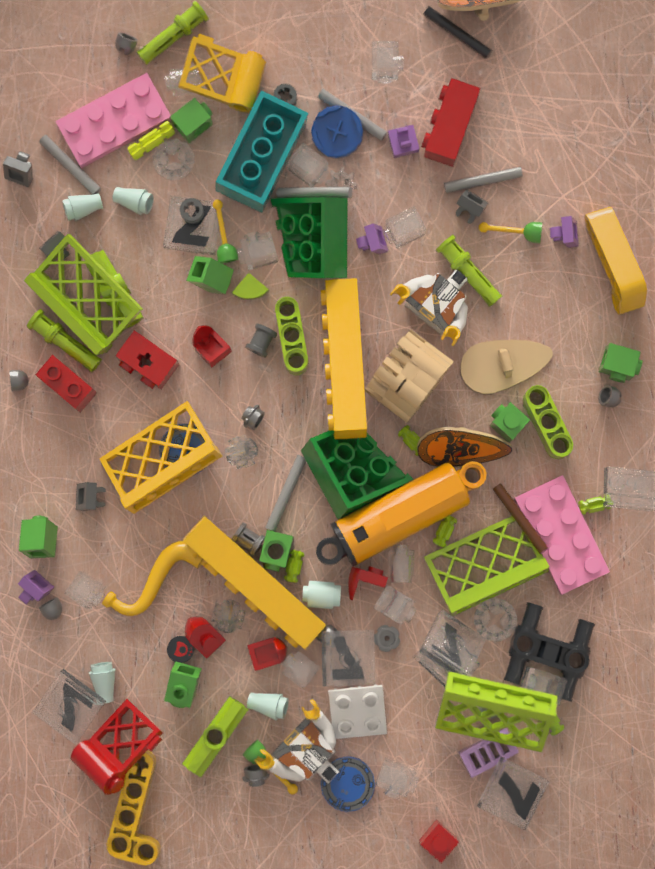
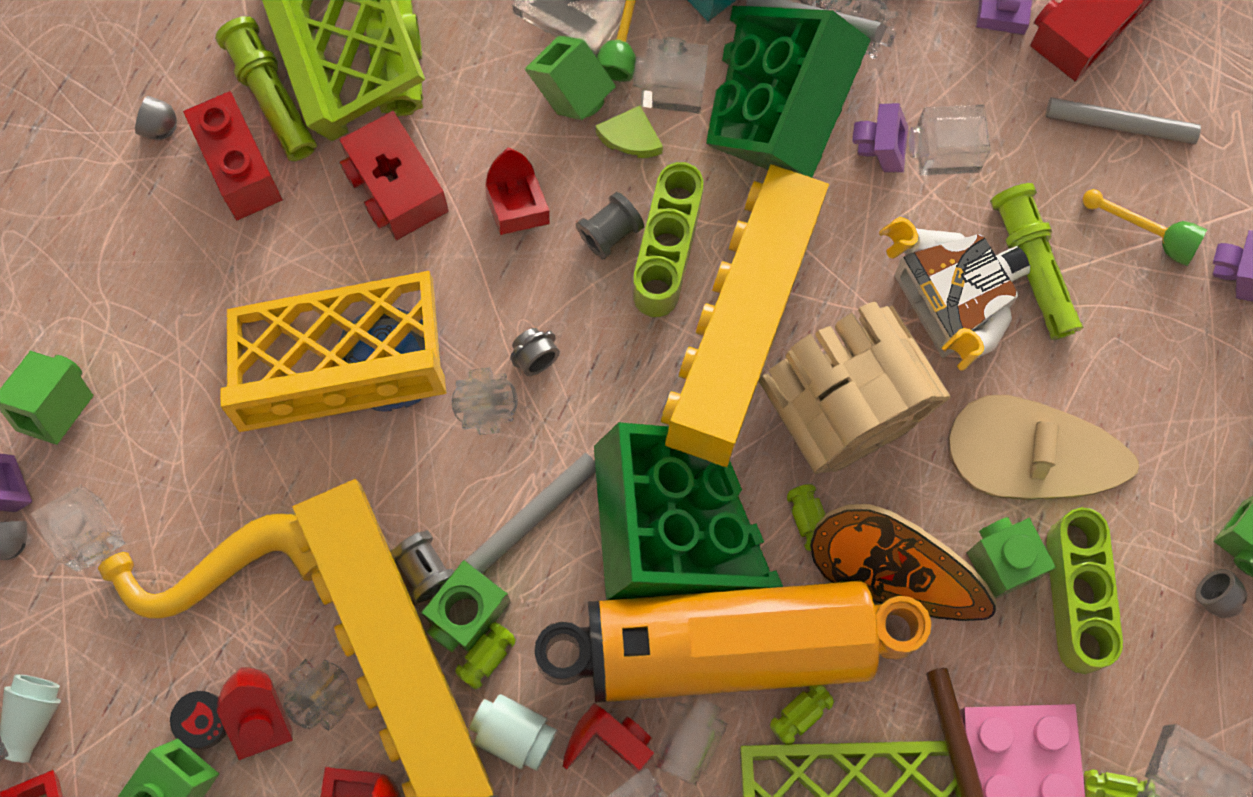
camera: 20 degrees right, 10 degrees down
(86, 496) = (170, 363): dark grey tile -> none
(471, 203) = (1087, 149): dark grey tile -> none

